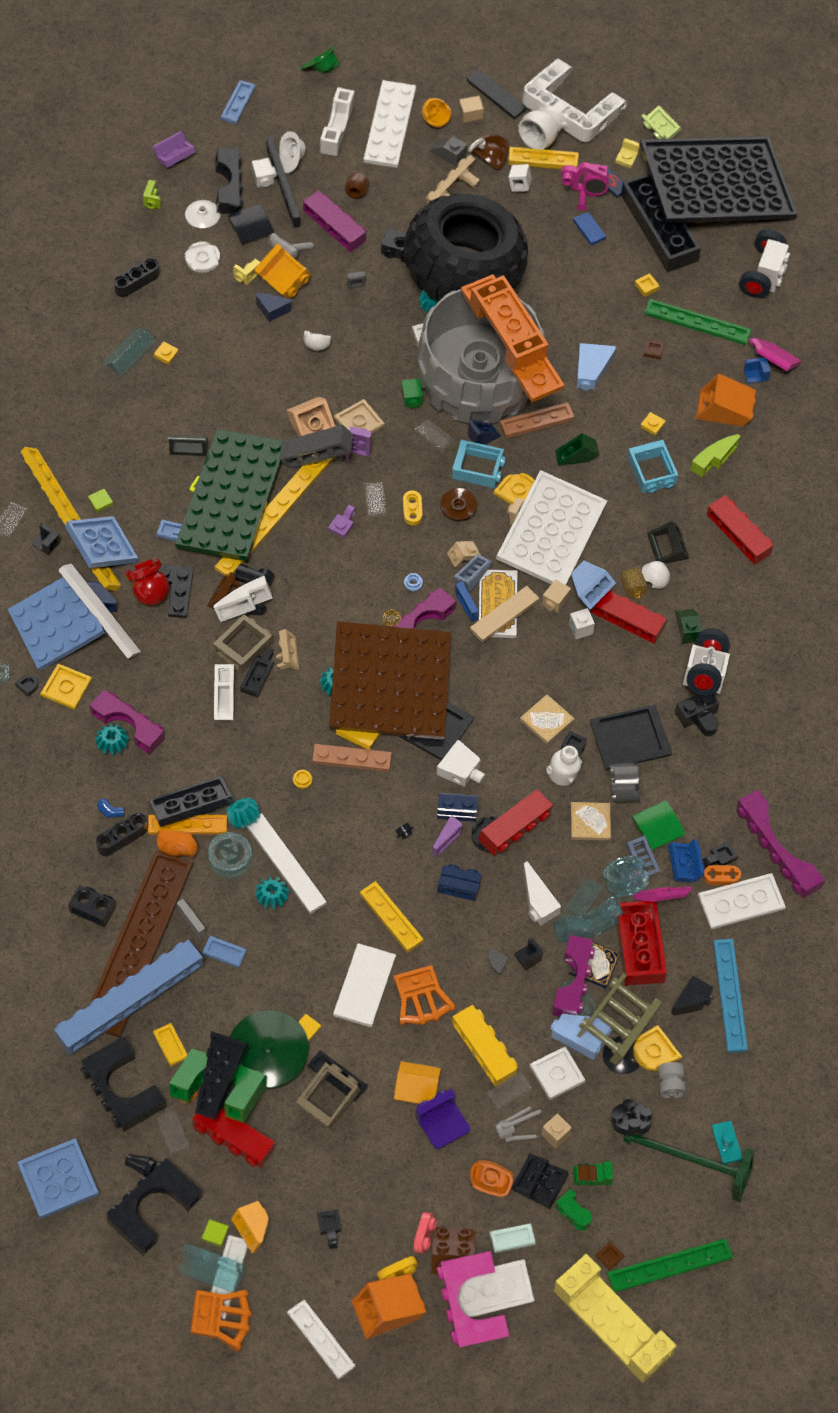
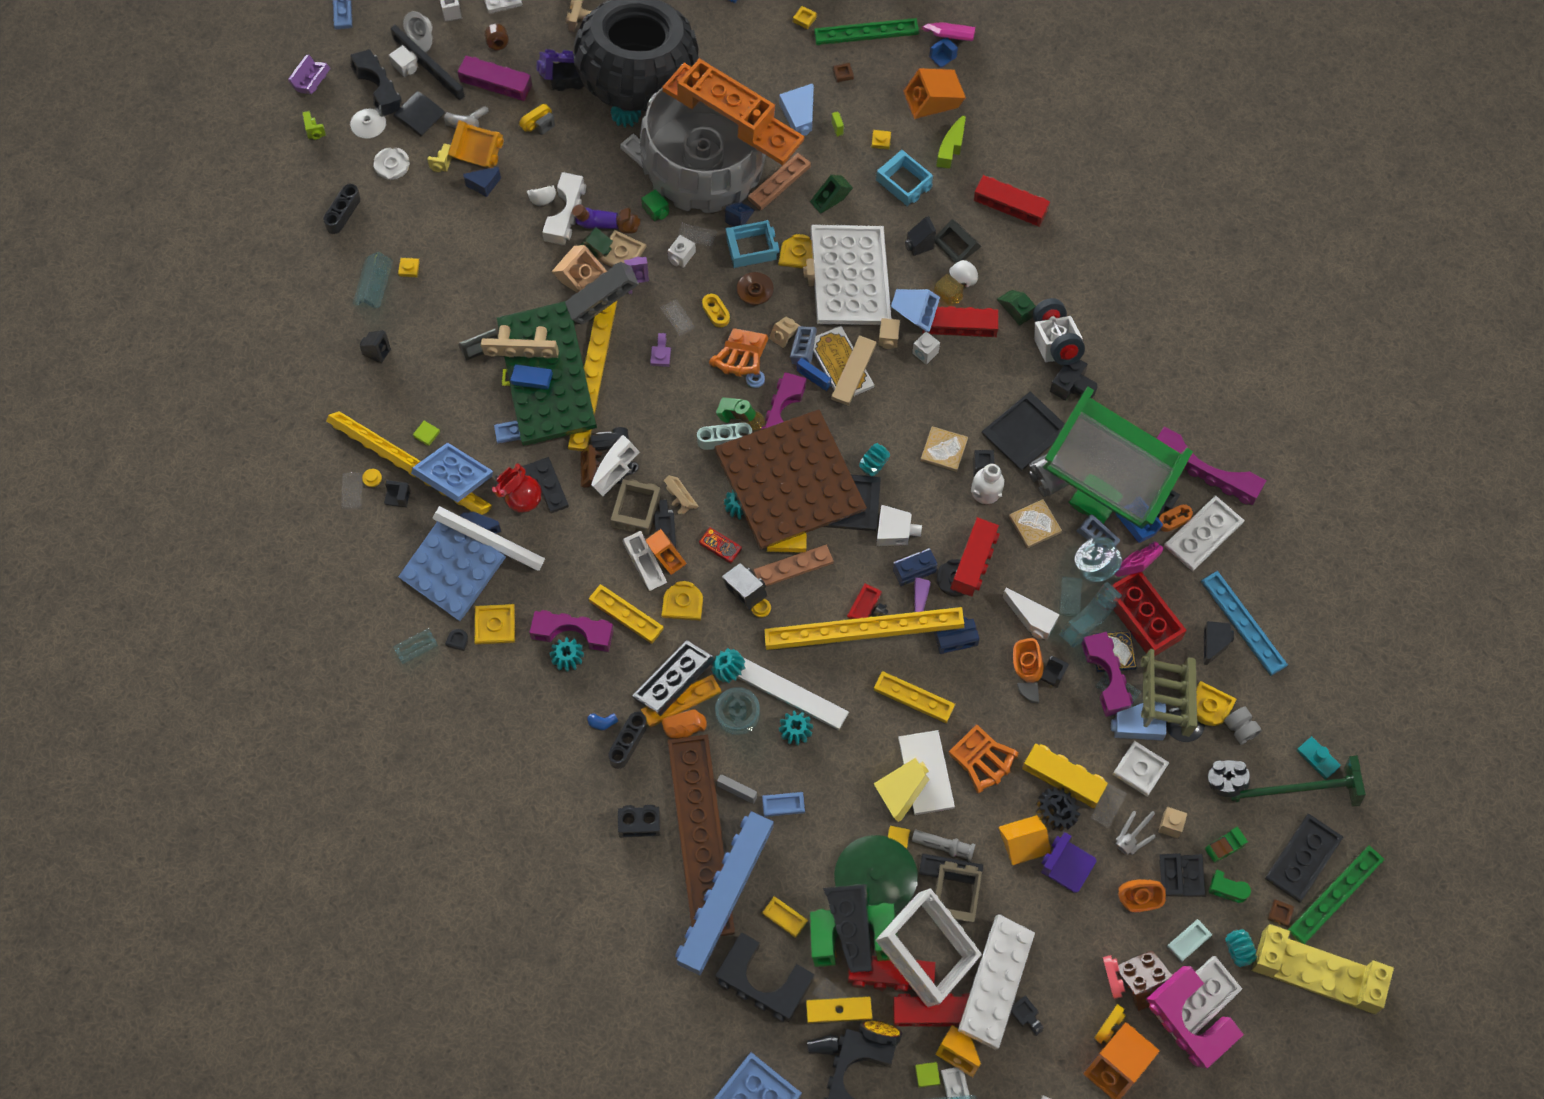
camera: 25 degrees left, 5 degrees up
(33, 517) = (372, 477): none -> yellow plate
(98, 407) = (375, 346): none -> black slope
(158, 1135) = (853, 1010): none -> yellow tile
(182, 729) = (626, 614): none -> yellow plate
(192, 1173) = (880, 1032): none -> tile
(211, 459) = (528, 348): none -> tan plate
(214, 491) = (531, 377): none -> blue tile
(237, 743) = (683, 602): none -> yellow tile
(244, 692) = (665, 552): none -> orange slope
(244, 1130) = (907, 964): none -> white window
(253, 1184) = (914, 1013): none -> red brick
(297, 753) = (745, 585): none -> brick
(298, 710) = (720, 545): none -> tile
(314, 375) = (558, 227): none -> white arch
(318, 1184) = (996, 982): none -> white plate
(333, 986) = (903, 787): none -> light yellow slope
(339, 403) = (598, 243): none -> dark green slope
(340, 271) = (528, 121): none -> yellow plate
(349, 1057) = (953, 846): none -> light grey pin
(351, 612) = (717, 431): none -> light aqua beam
(356, 384) = (600, 219): none -> piece
(377, 599) = (735, 409): none -> green leg
(380, 837) = (864, 628): none -> yellow plate
(393, 222) = (545, 64): none -> dark purple bracket
(395, 818) = (864, 602): none -> red tile
(411, 443) = (681, 251): none -> white brick
(420, 547) = (743, 343): none -> orange plate
(468, 1077) = (1058, 809): none -> black gear
(475, 698) = (874, 459): none -> teal gear
(510, 933) = (1028, 660): none -> orange piece
(552, 1264) = (1241, 947): none -> teal gear
(619, 392) = (837, 124): none -> lime tile
(634, 525) = (921, 237): none -> black slope
(660, 1220) = (1304, 858): none -> black tile
(687, 794) = (1115, 462): none -> clear piece

